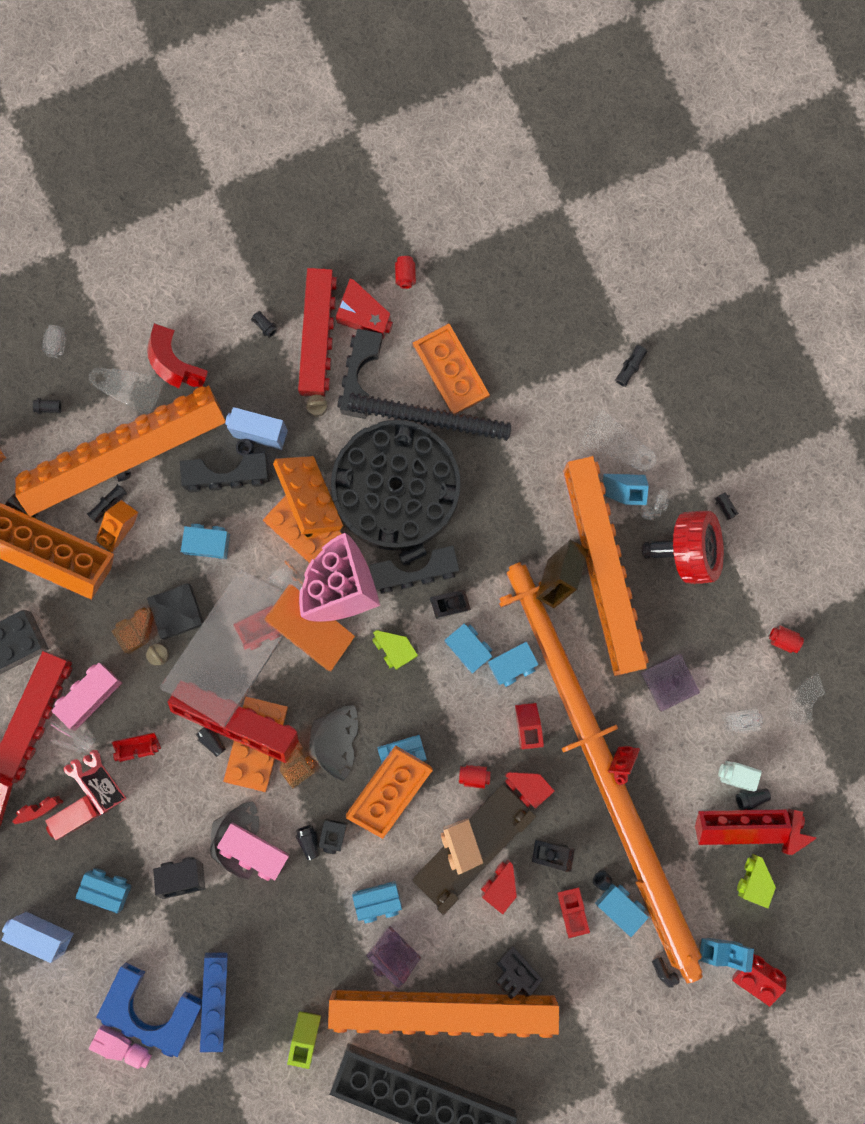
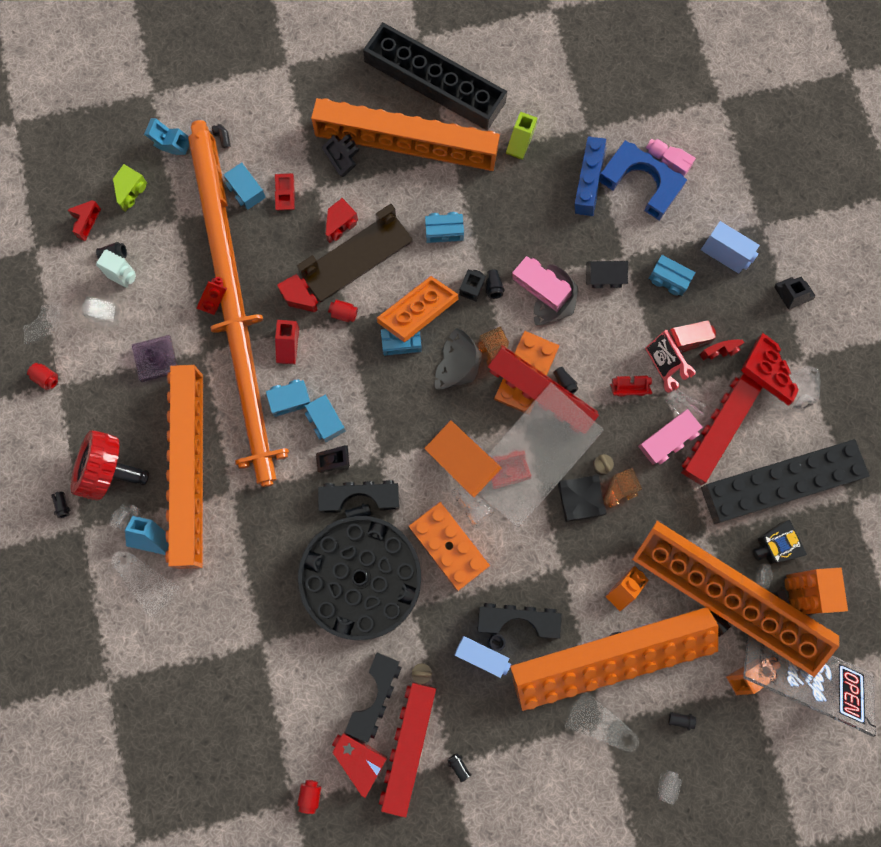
camera: 170 degrees left, 5 degrees down
(107, 502) = (634, 612): black pin -> none
(167, 364) = (561, 741): red arch -> none
(205, 542) = (546, 557): dark azure brick -> none
(307, 495) = (444, 581): orange plate -> none
(337, 583) = (429, 491): bright pink brick -> none
(393, 957) = (438, 182): clear purple plate -> none
(396, 647) = (388, 429): lime slope -> none
(429, 416) = (315, 638): black piece -> none
(451, 369) = (285, 685): orange plate -> none
(462, 845) = (365, 254): light nougat slope -> none
(553, 855) = (290, 236): black slope -> none
(562, 574) = (224, 463): dark brown brick -> none
(600, 883) = (257, 215): black hinge -> none
(631, 365) = (111, 657): black pin -> none
(742, 827) = (126, 229): red brick -> none
(763, 982) = (140, 113): red bracket -> none

